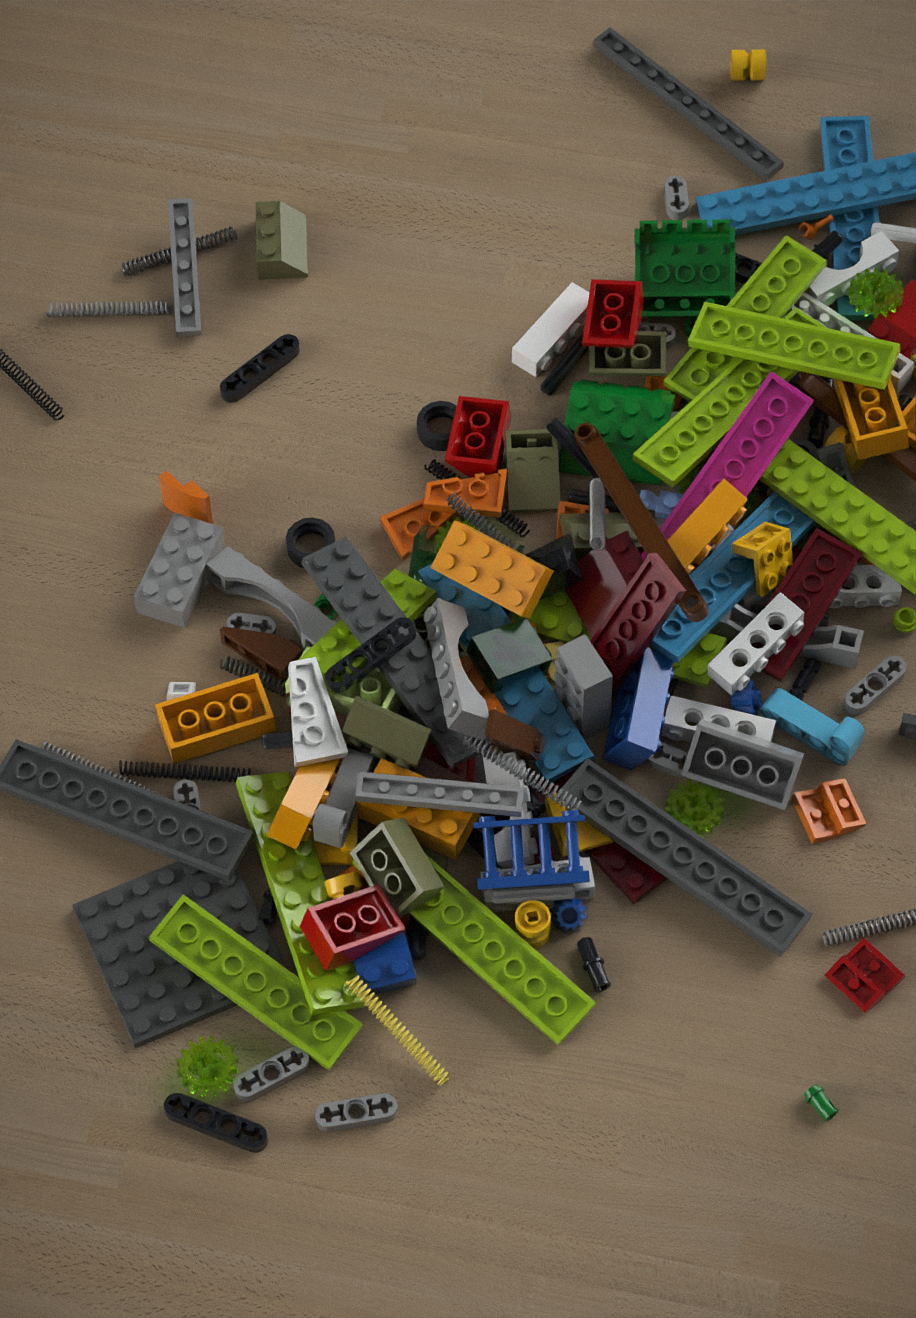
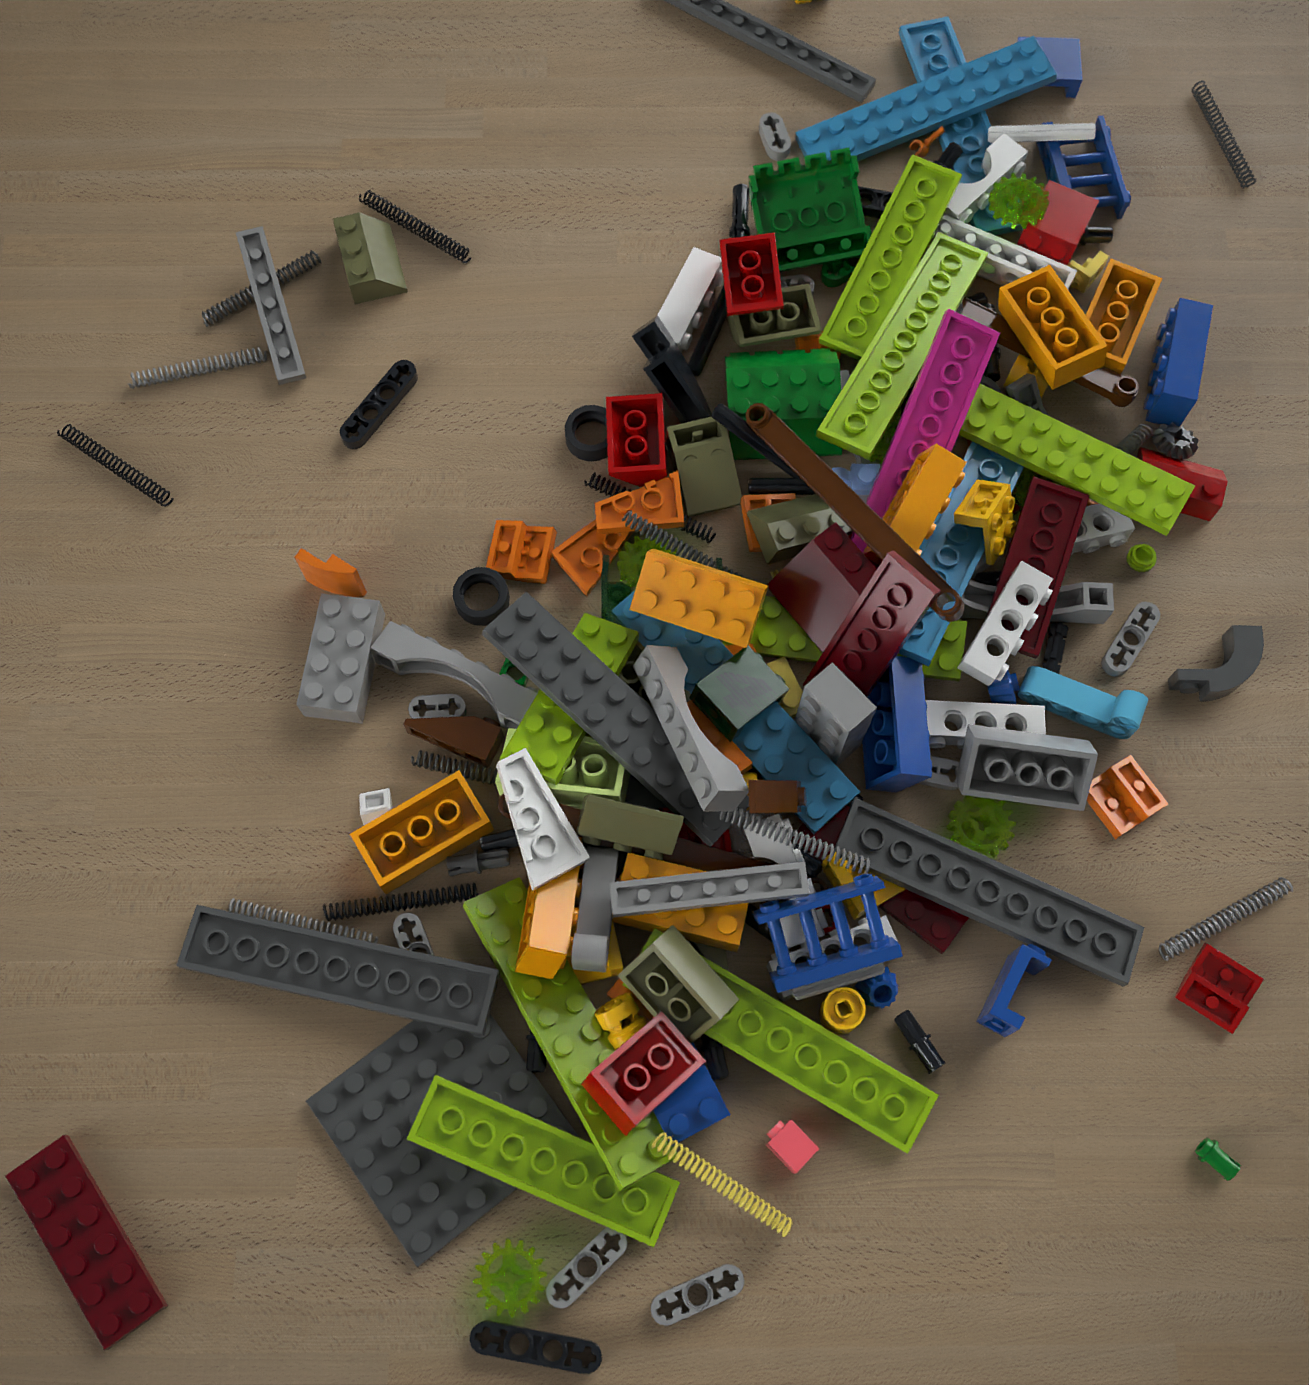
camera: 15 degrees left, 10 degrees up
(257, 752) = (478, 861): none -> dark grey axle
(327, 221) = (415, 226): none -> black piece
(355, 513) = (521, 551): none -> orange slope
(367, 651) = (585, 730): black beam -> none
(462, 1018) = (791, 1145): none -> coral brick
(522, 385) = (671, 372): none -> black slope
(562, 559) = (763, 565): black slope -> none
(597, 509) = (790, 509): light grey piece -> none
(624, 260) = (740, 212): none -> black pin
(663, 948) = (995, 1012): none -> blue panel
(794, 345) = (957, 274): lime plate -> none

